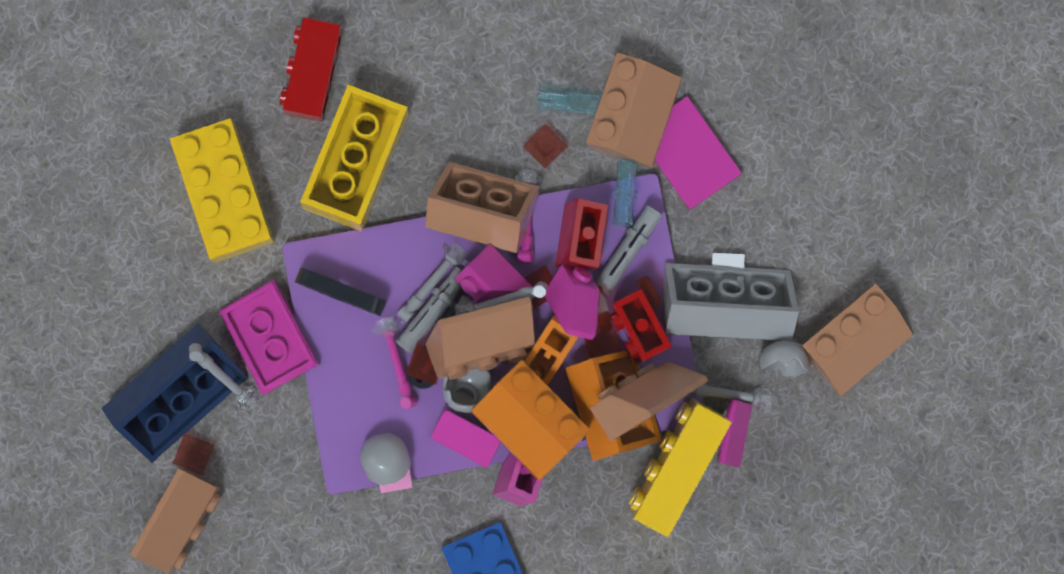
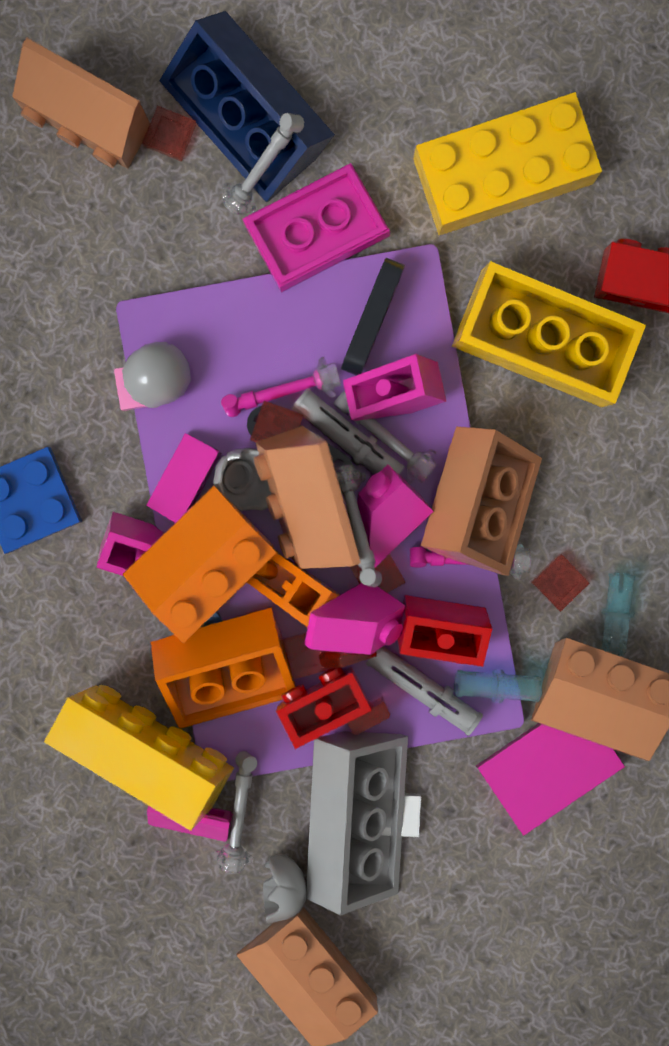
camera: 90 degrees right, 5 degrees up
(396, 274) = (395, 389): none -> dark pink slope
(644, 396) = (226, 715): nougat slope -> none

